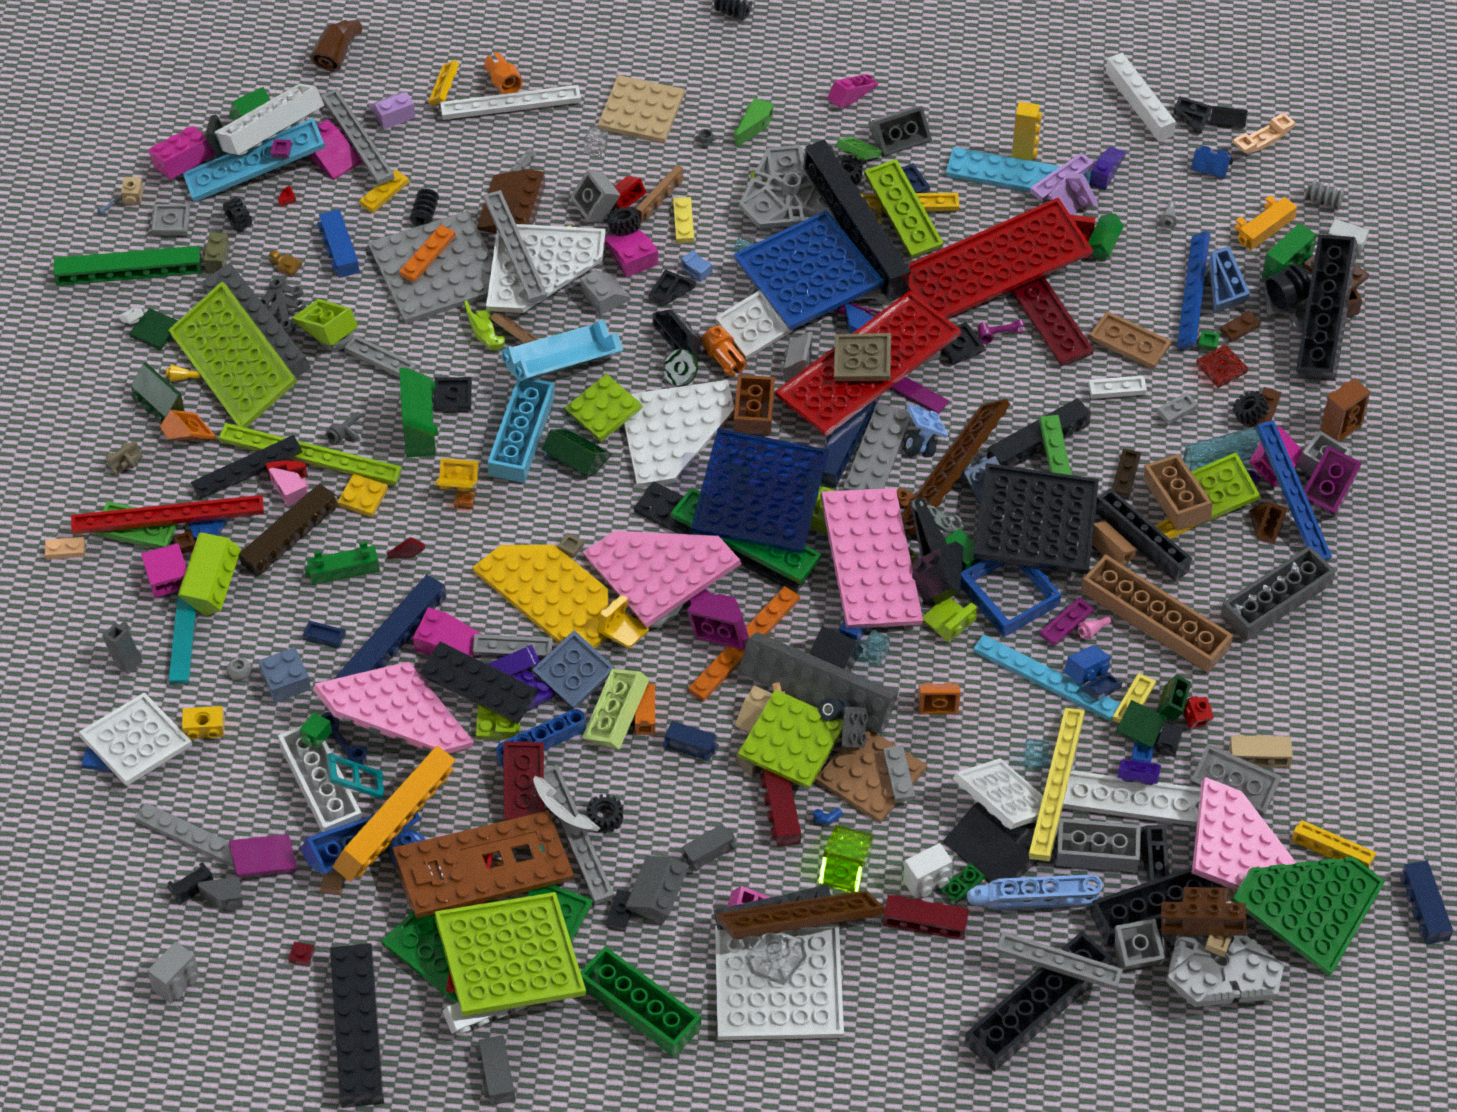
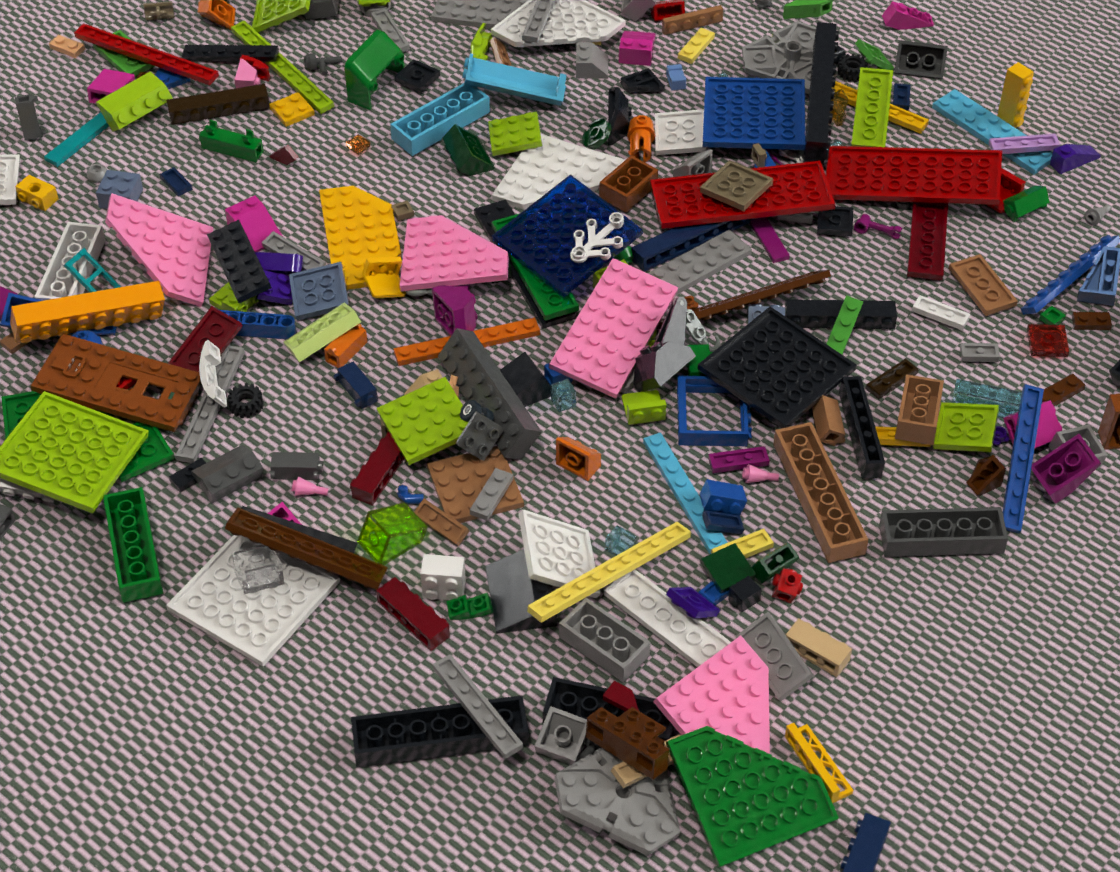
camera: 35 degrees right, 5 degrees down
(315, 730) = (90, 229): green brick -> none
(357, 753) = (114, 266): dark blue piece -> none
(396, 628) = (213, 203): dark blue brick -> none
(458, 473) = (367, 125): yellow bracket -> none
(623, 221) = (647, 24): black tyre -> none
(730, 863) = (304, 487): none -> bright pink cone
(796, 482) = (581, 253): none -> white plant
(851, 314) = (758, 155): none -> dark tan plate
(876, 823) = (441, 522): none -> medium nougat tile
(929, 424) = (753, 259): light blue plate -> none
(1067, 892) = (540, 656): light blue piece -> none
(1074, 193) = (1021, 159): lavender bracket -> none
(1154, 851) = (651, 671): black slope -> none
(1161, 885) = (620, 696): none -> dark red tile
(1250, 407) = (1045, 378): black tyre -> none

